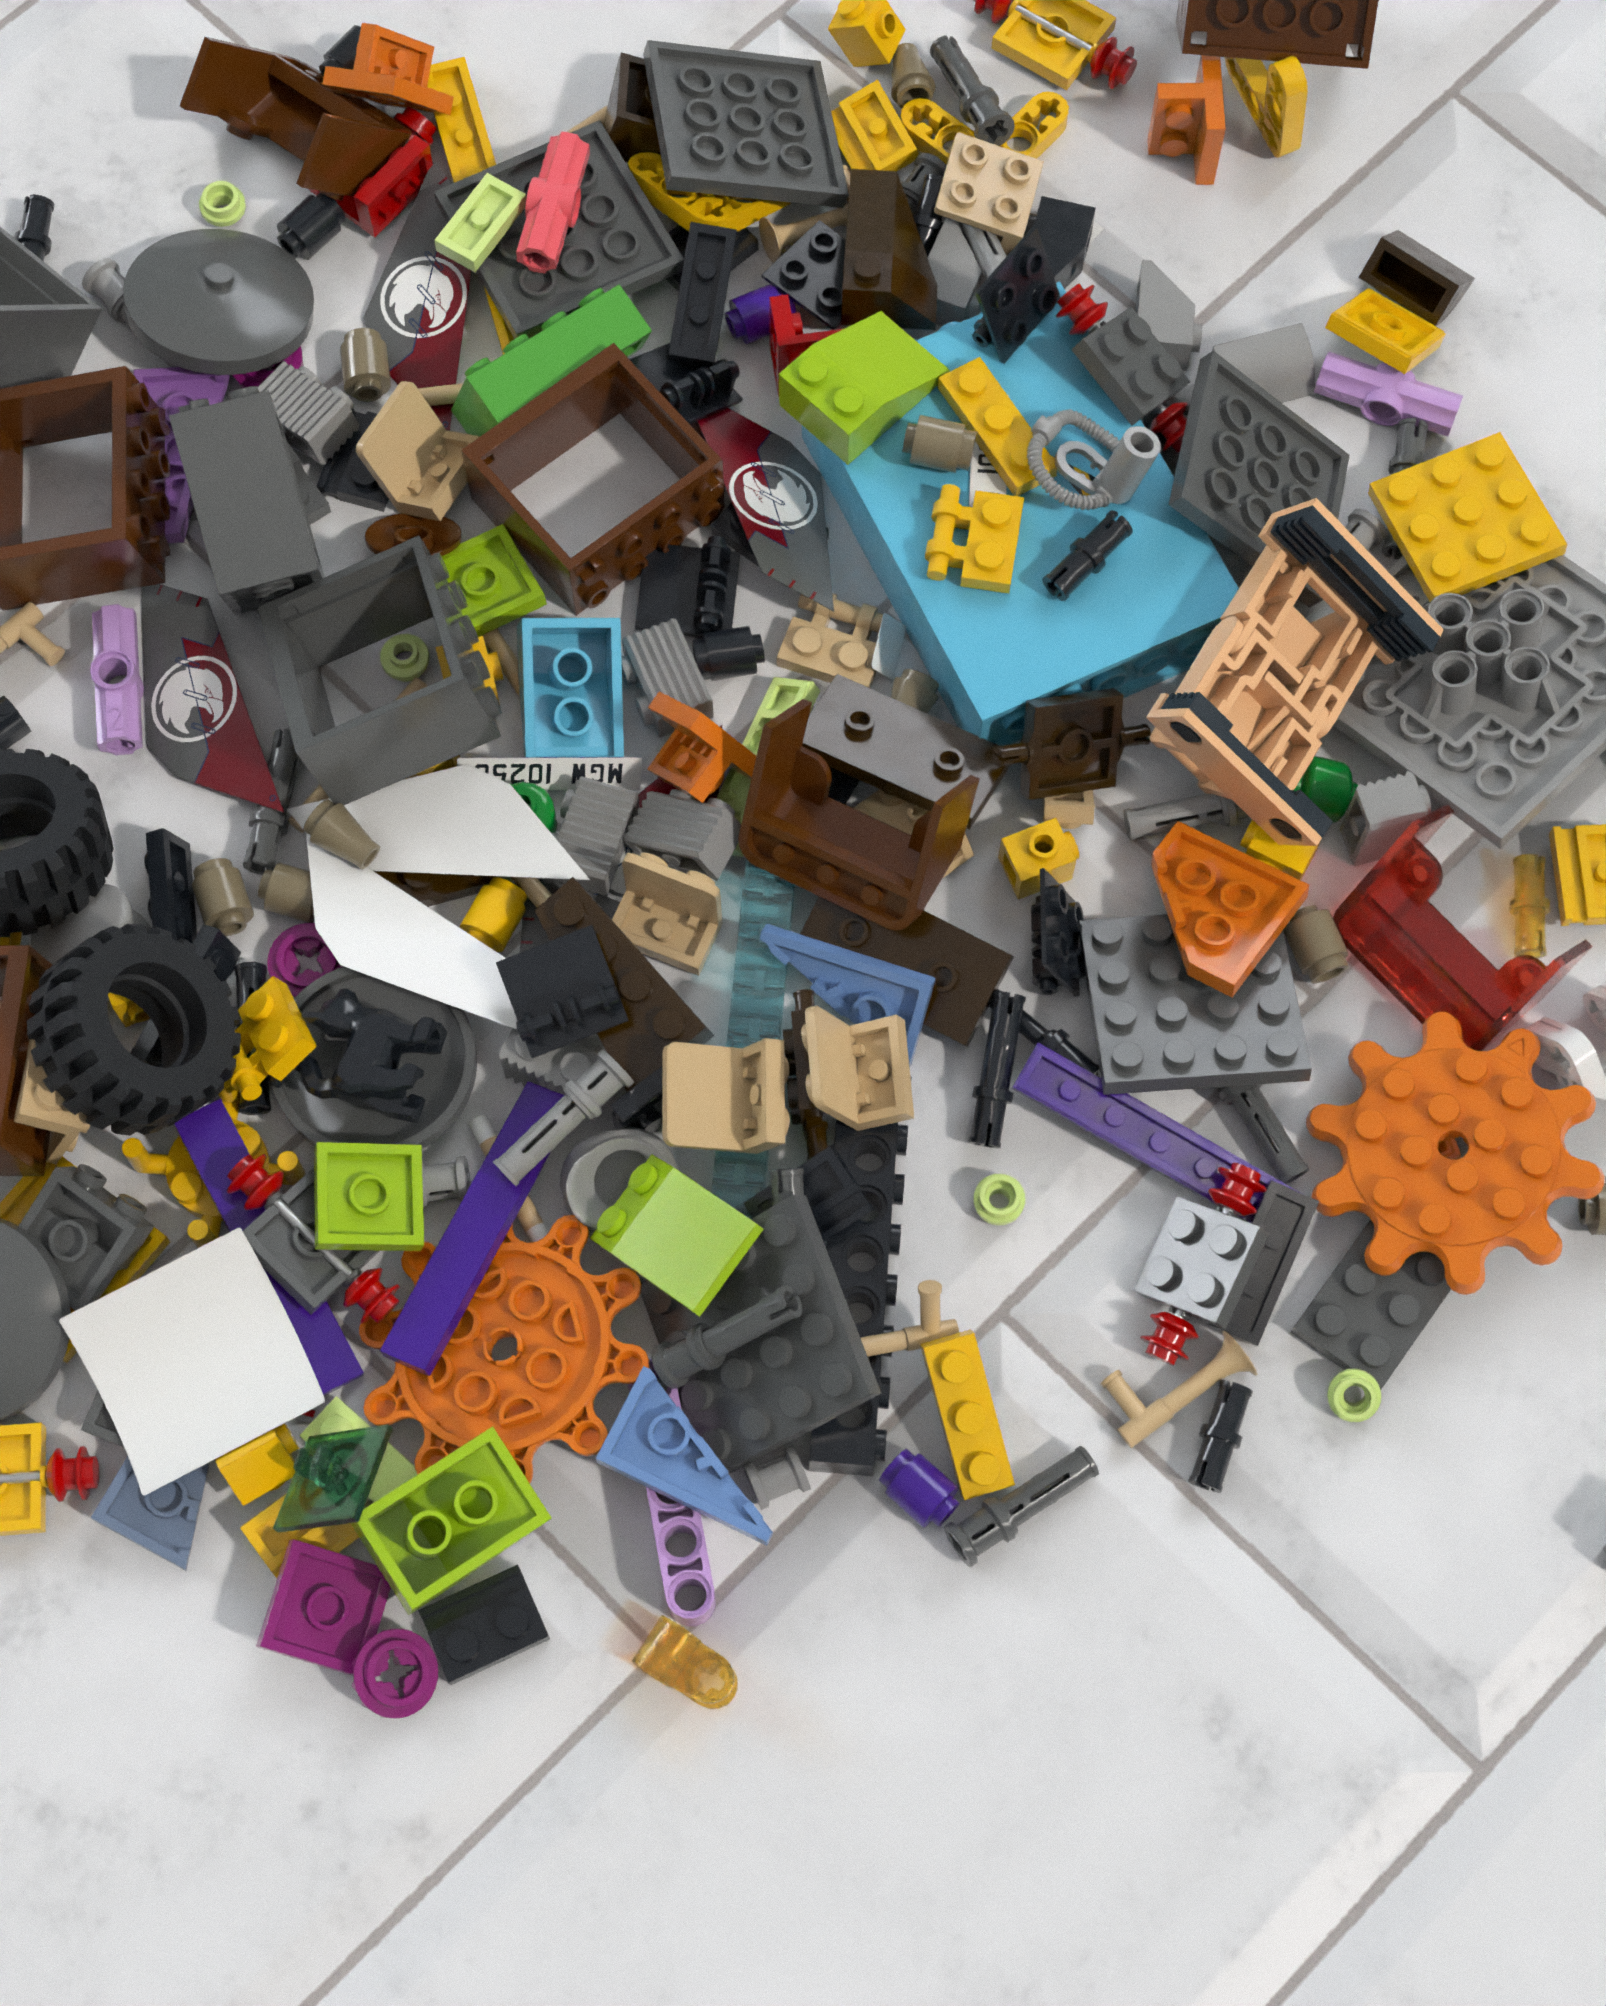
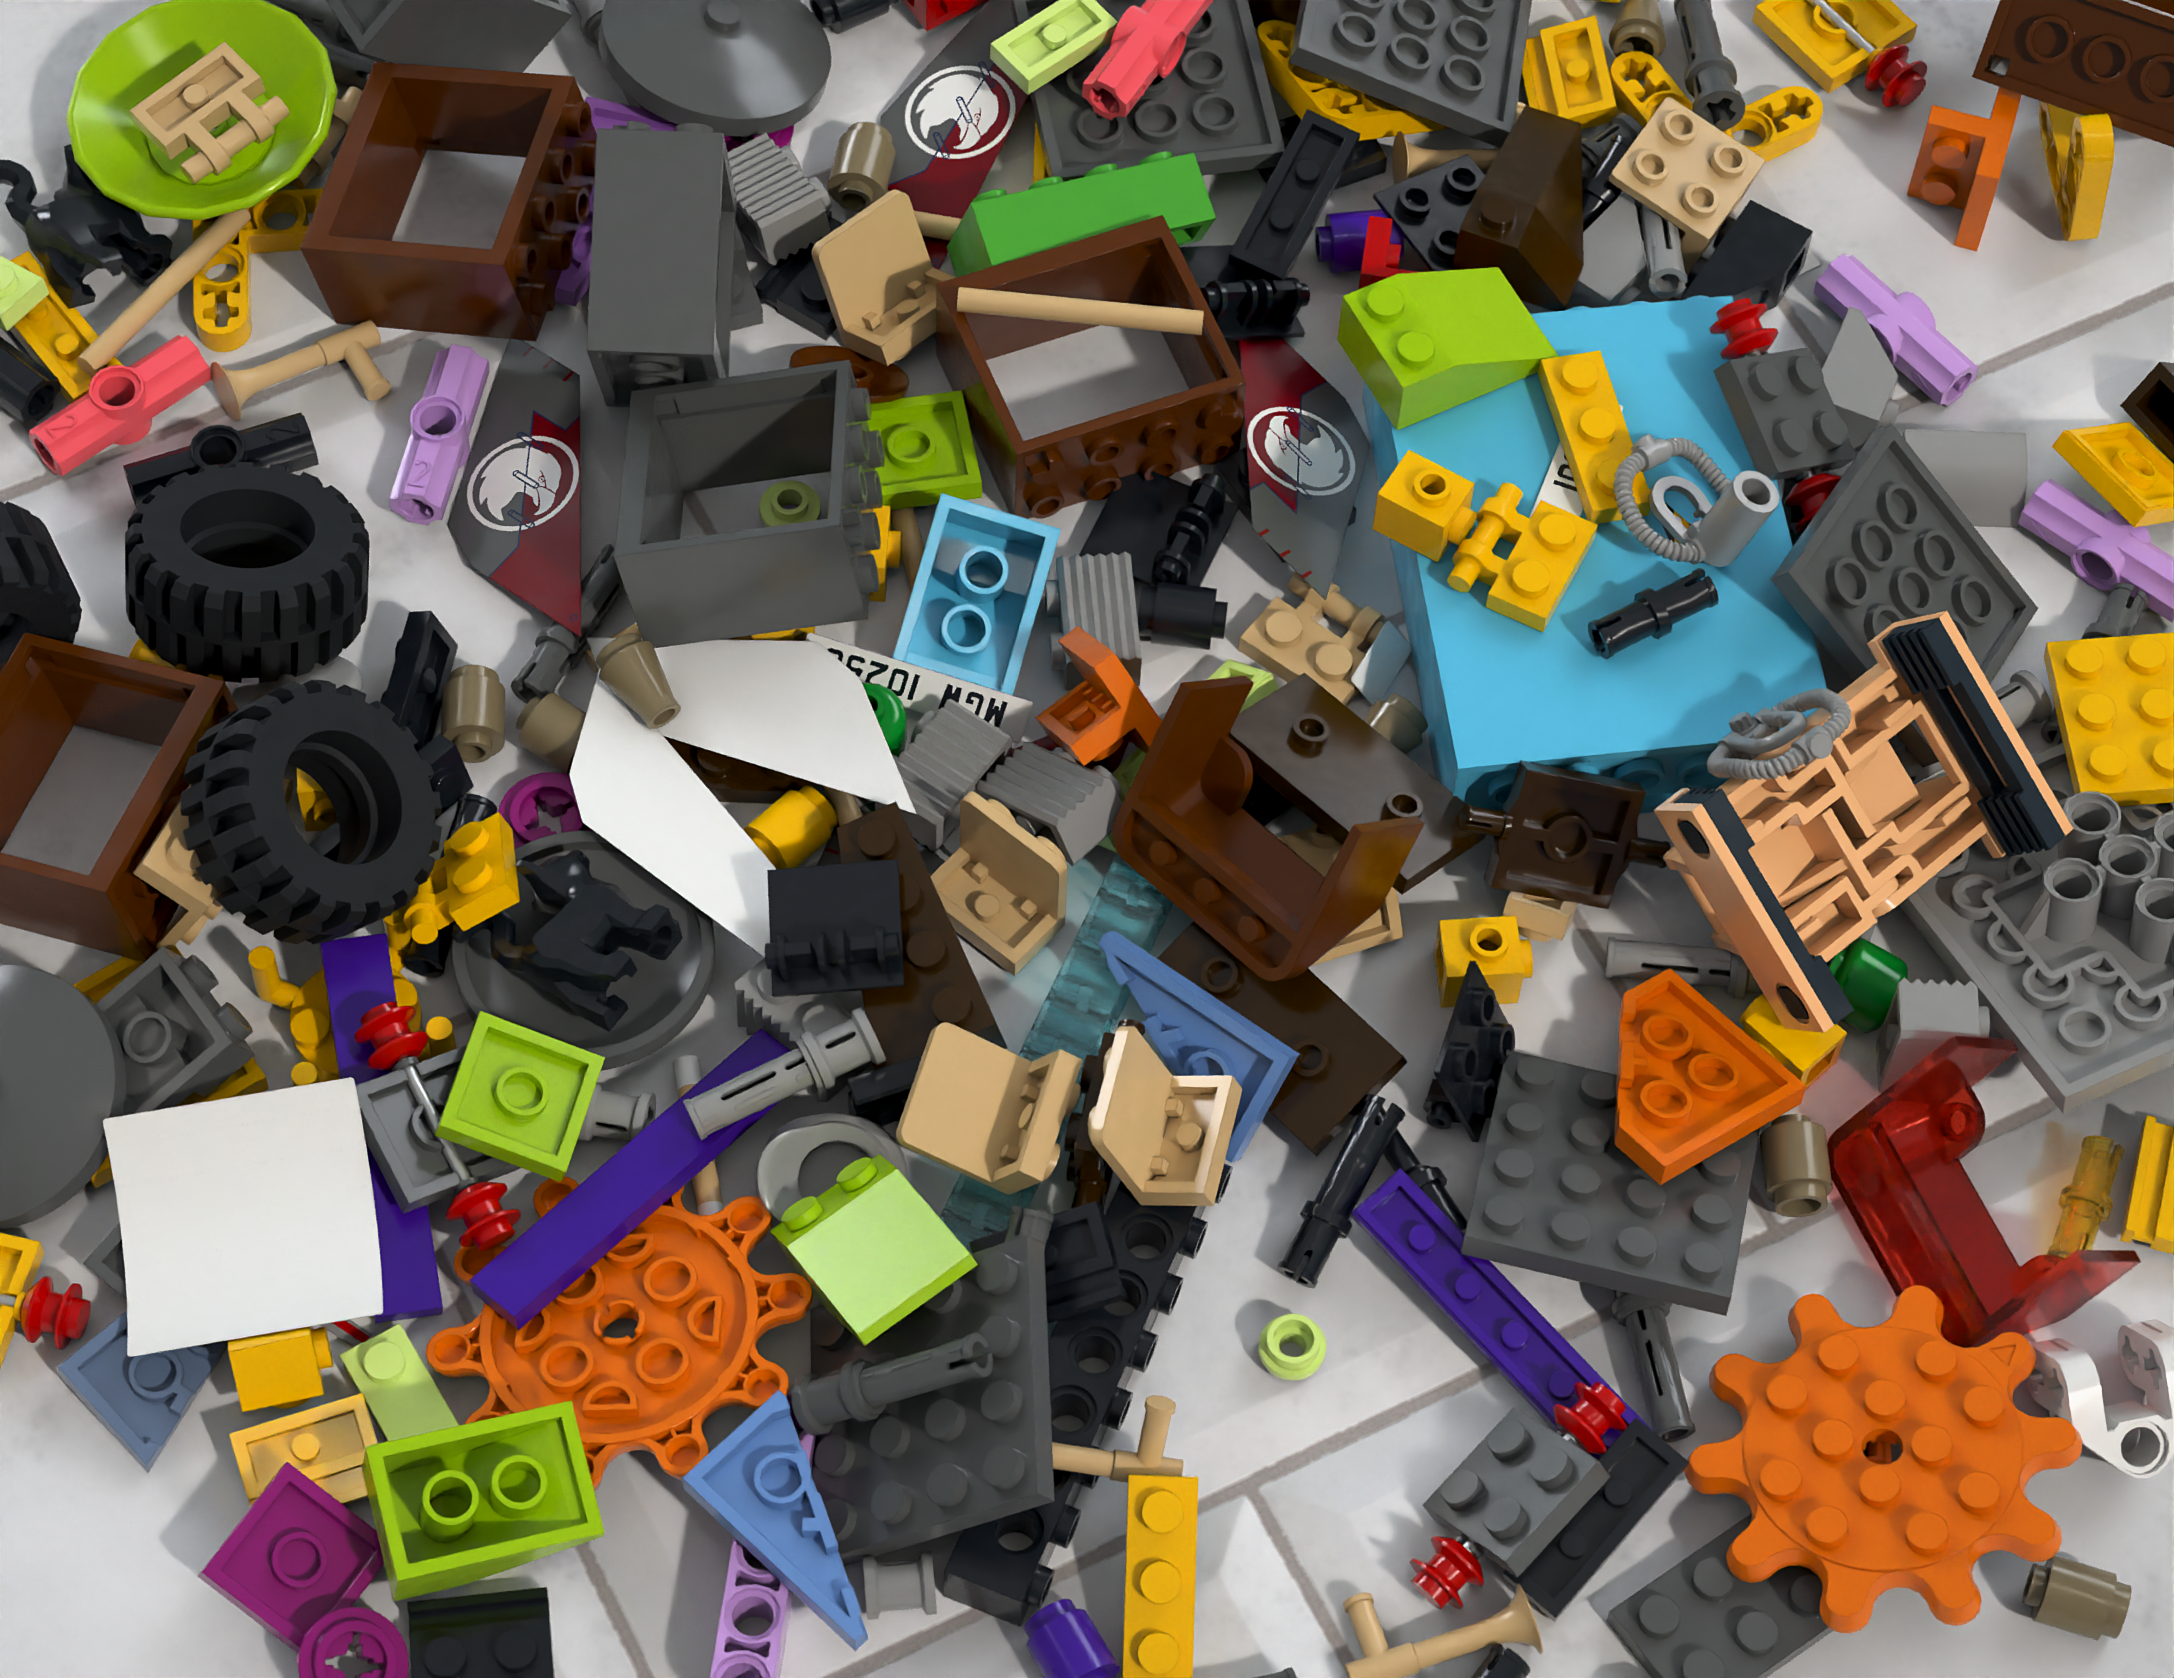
camera: 15 degrees right, 10 degrees down
(333, 1478) = (358, 1403): clear green piece -> none
(579, 440) = (1080, 311): none -> tan bar
(892, 522) = (1425, 506): none -> yellow brick
(939, 444) = (1515, 435): dark tan brick -> none
(1016, 297) = (1665, 291): black hinge -> none
(1182, 262) = (1902, 327): none -> lavender piece
(1194, 631) = (1762, 734): none -> light grey piece

